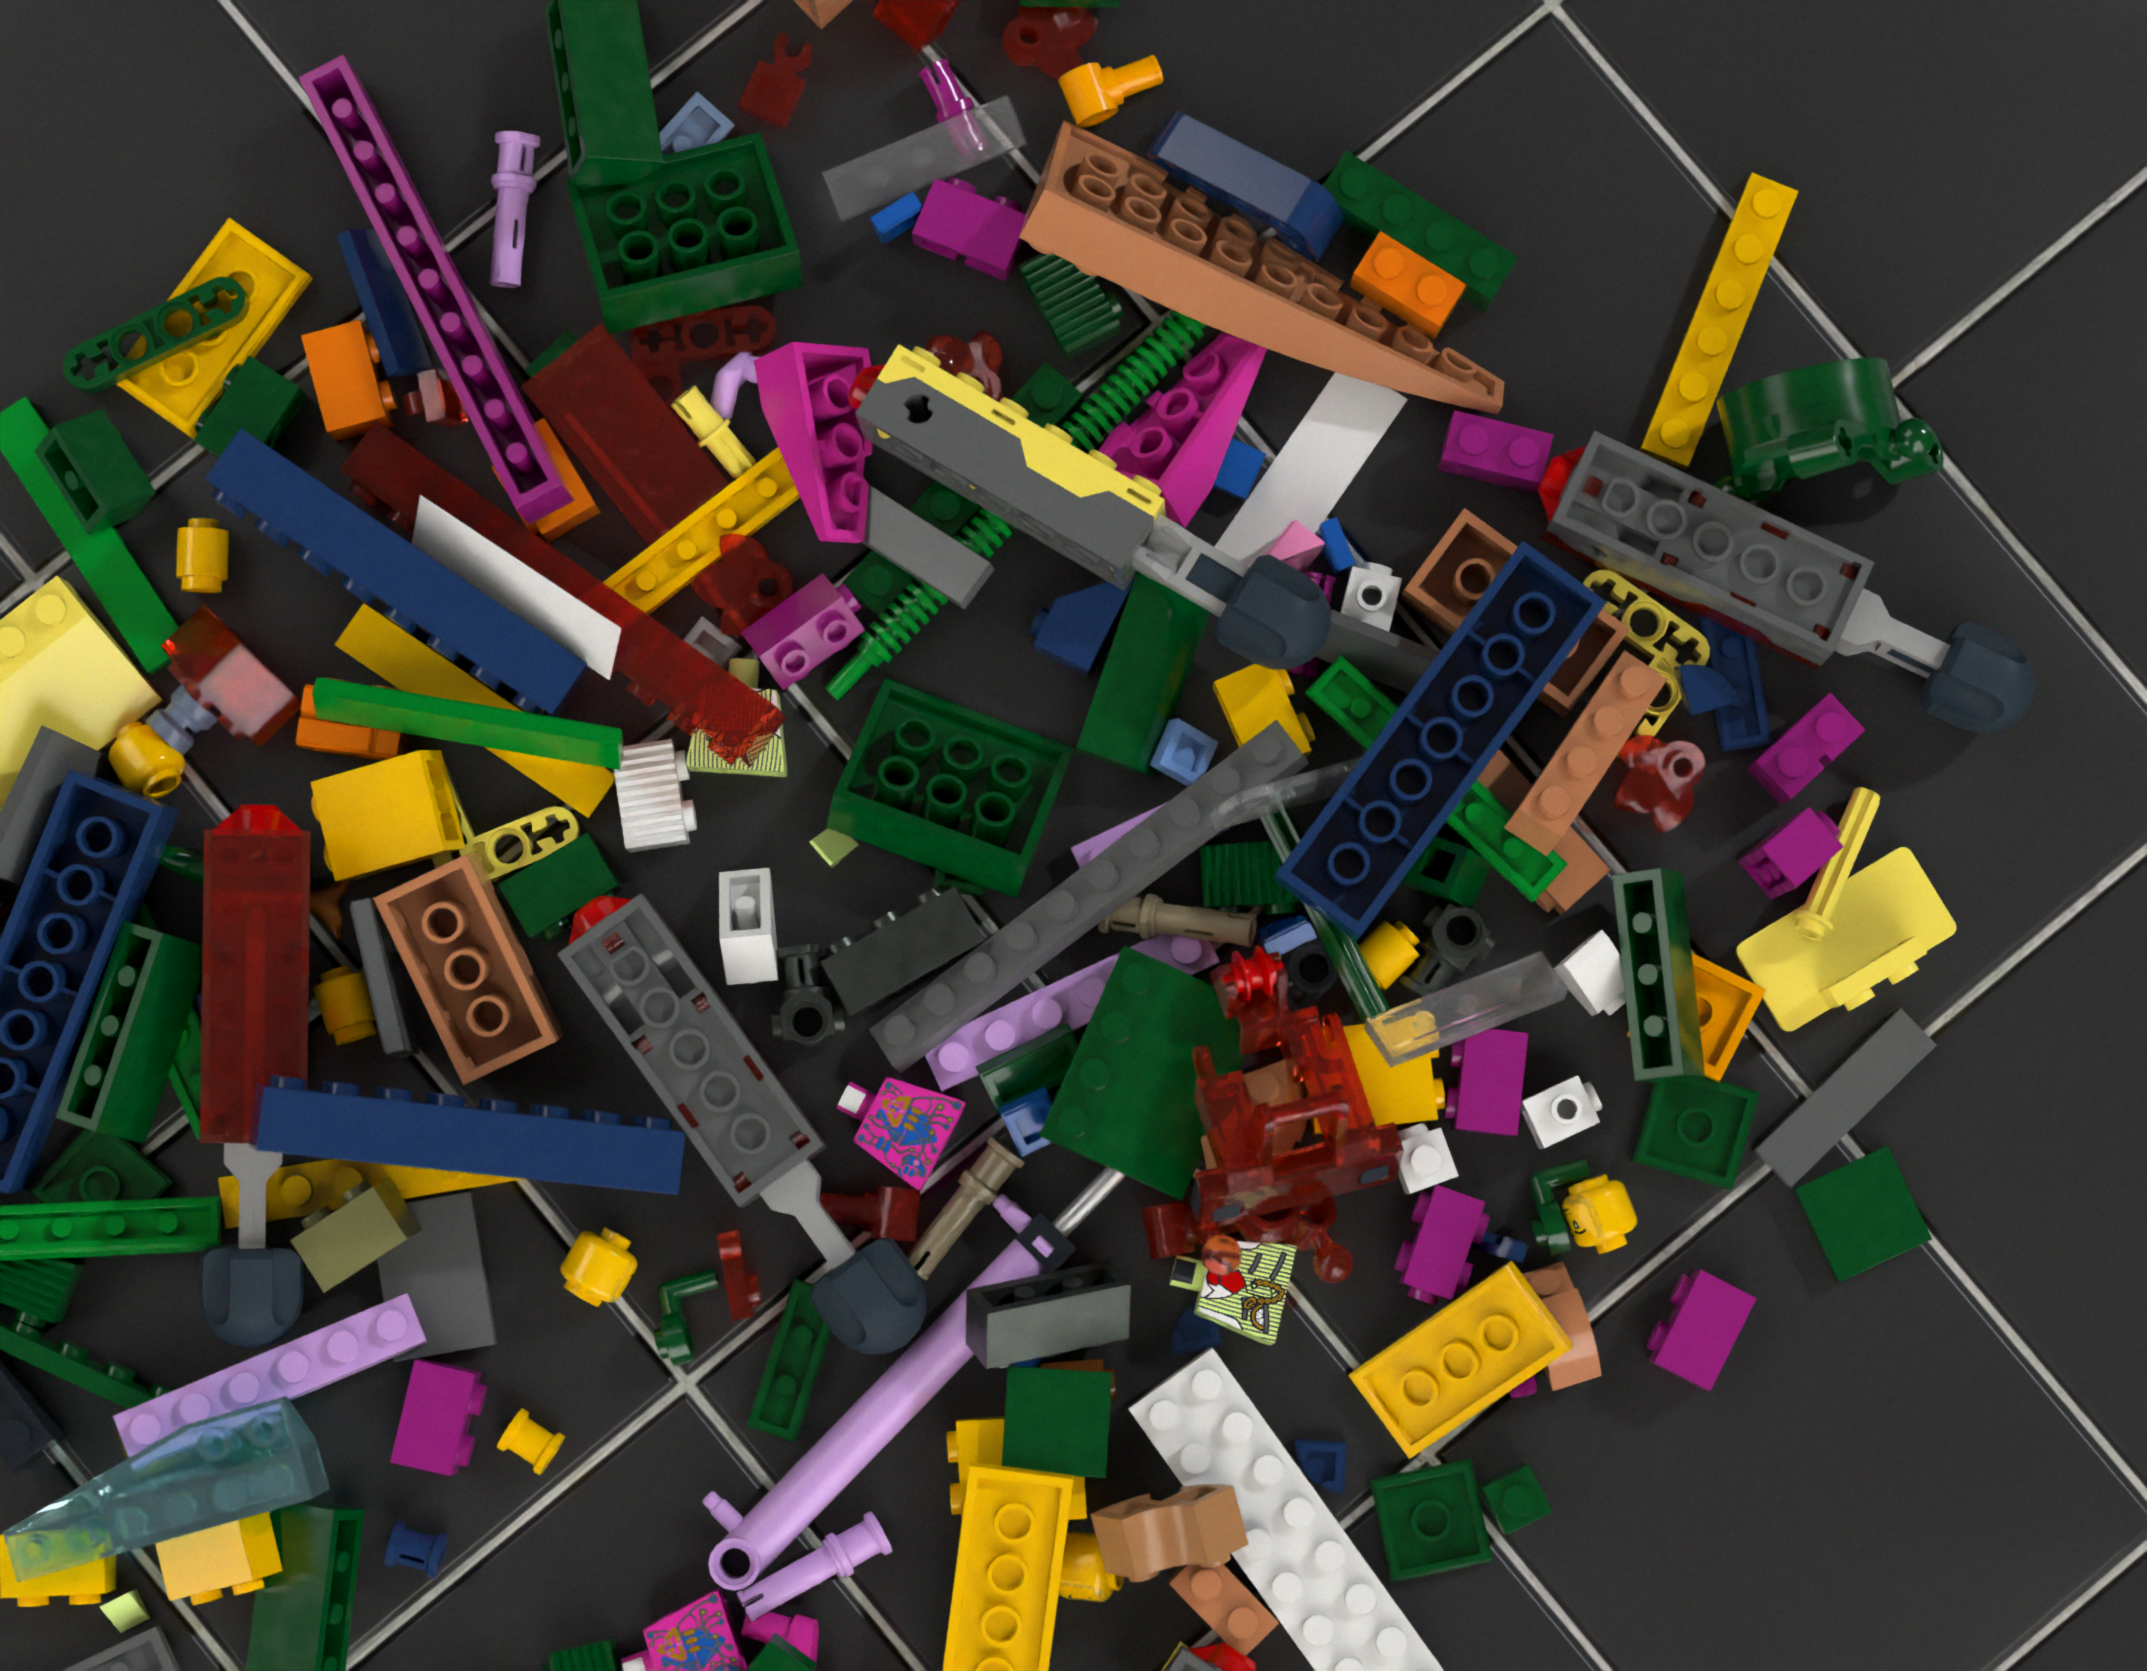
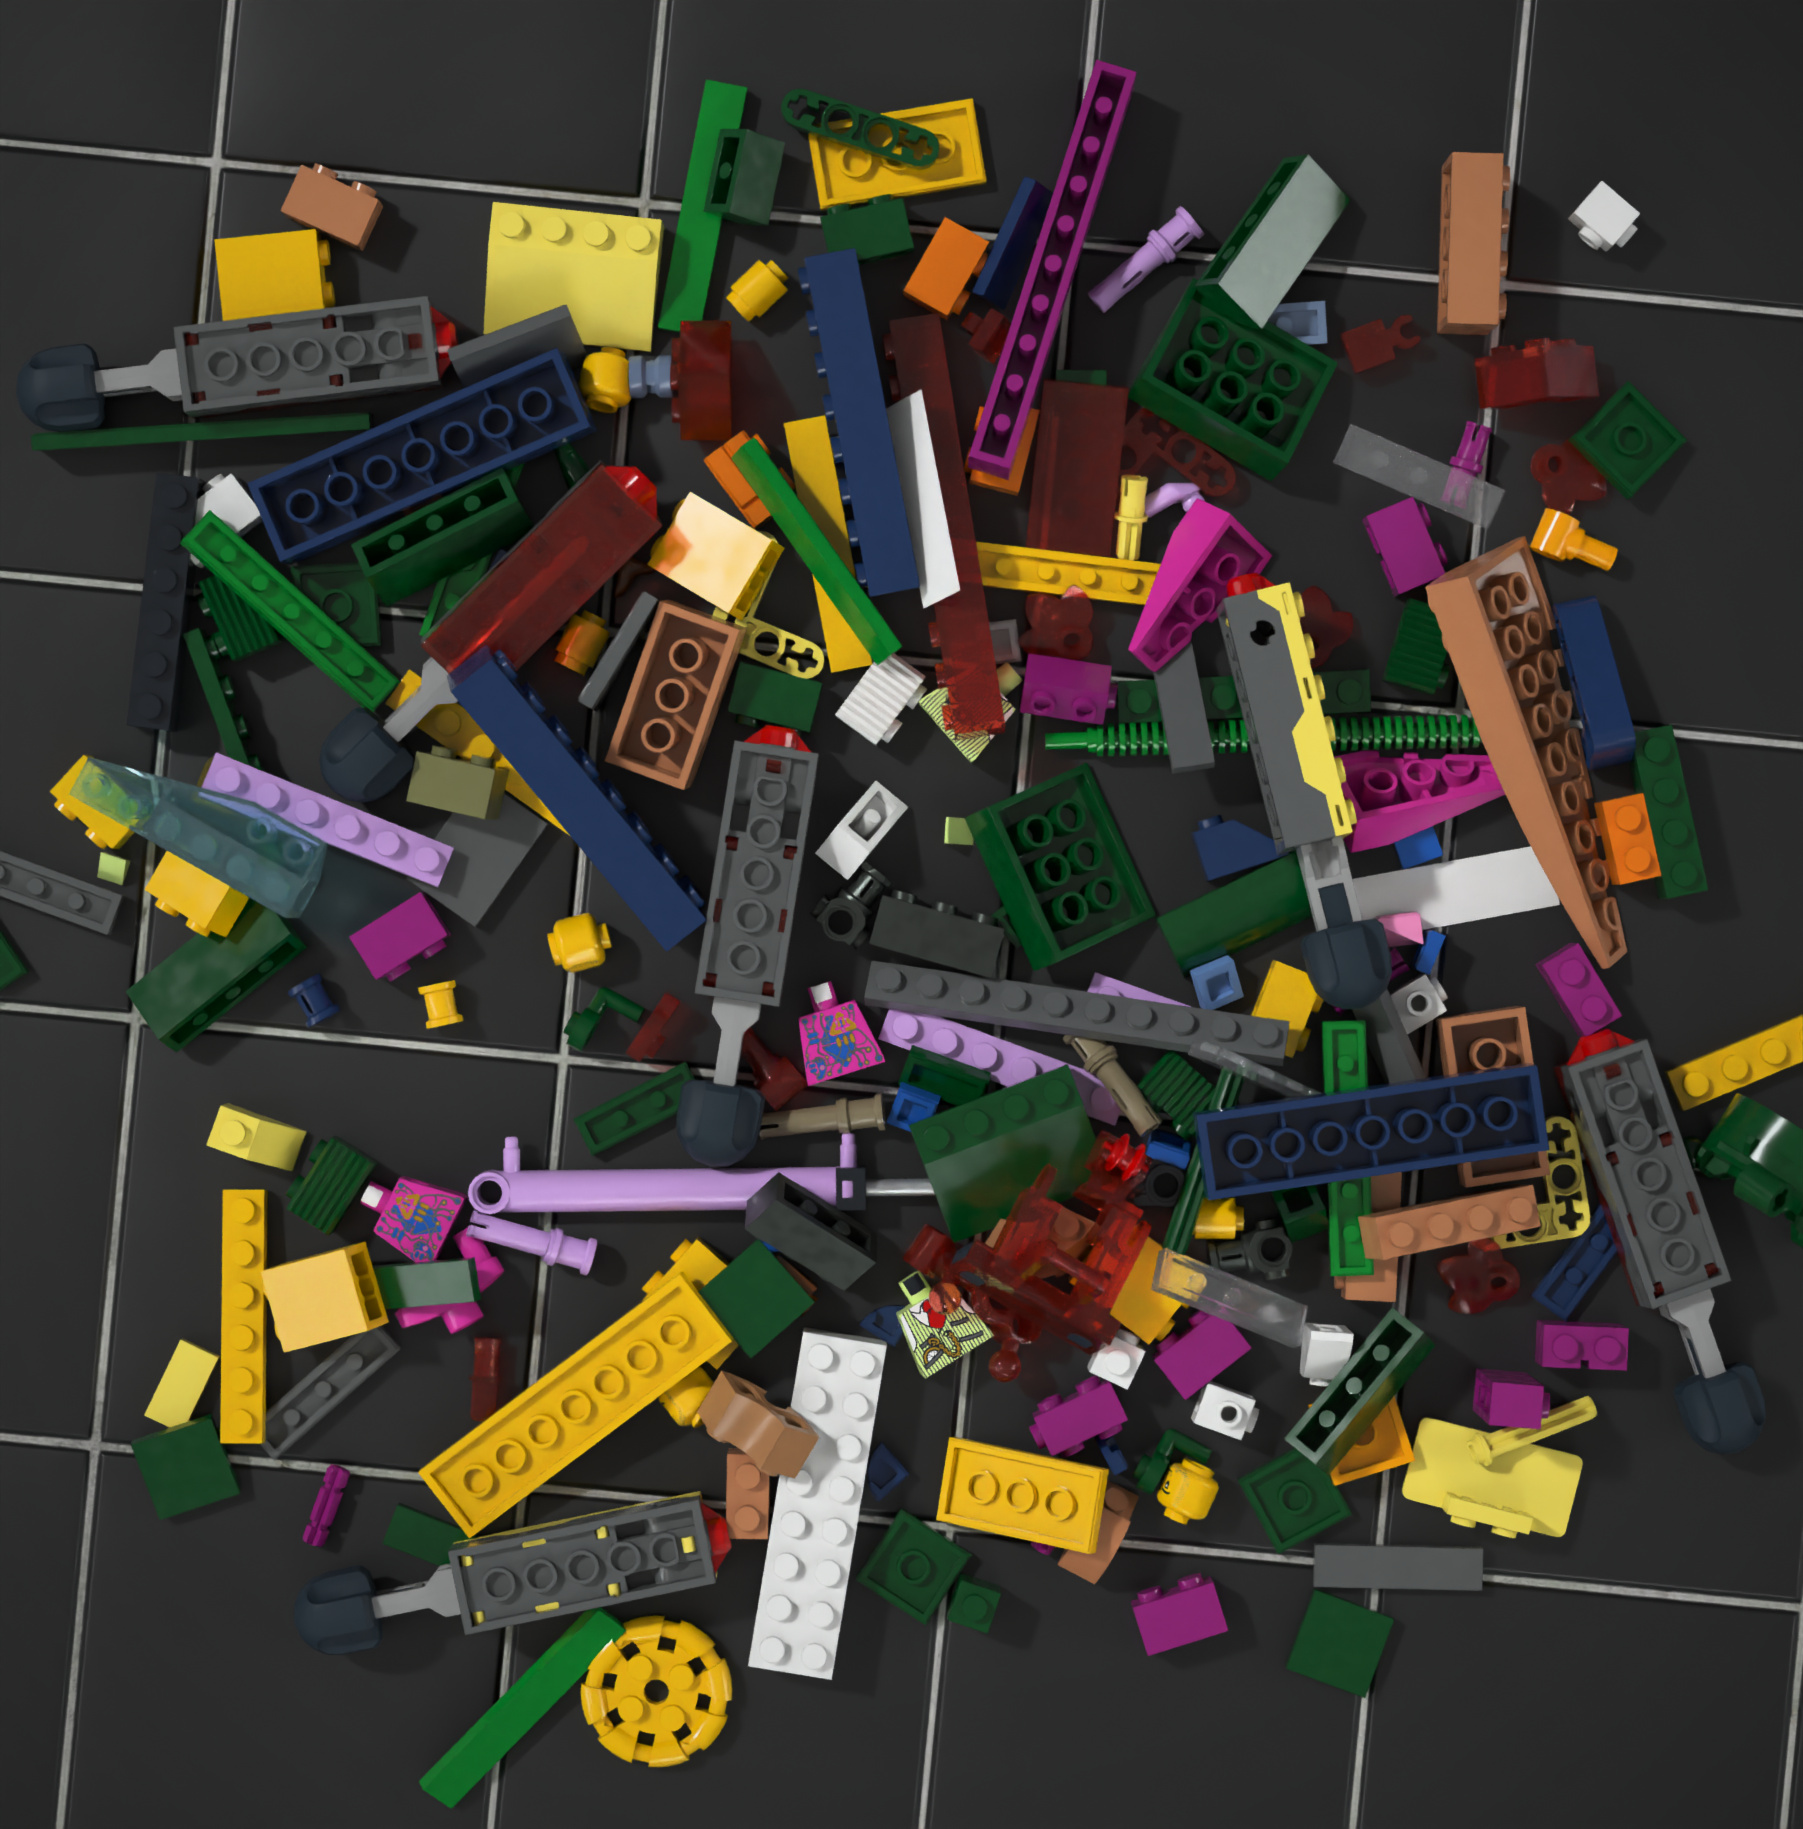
camera: 40 degrees right, 5 degrees up
(896, 218) = (1367, 496): blue tile -> none
(1703, 689) = (1557, 1251): dark blue tile -> none

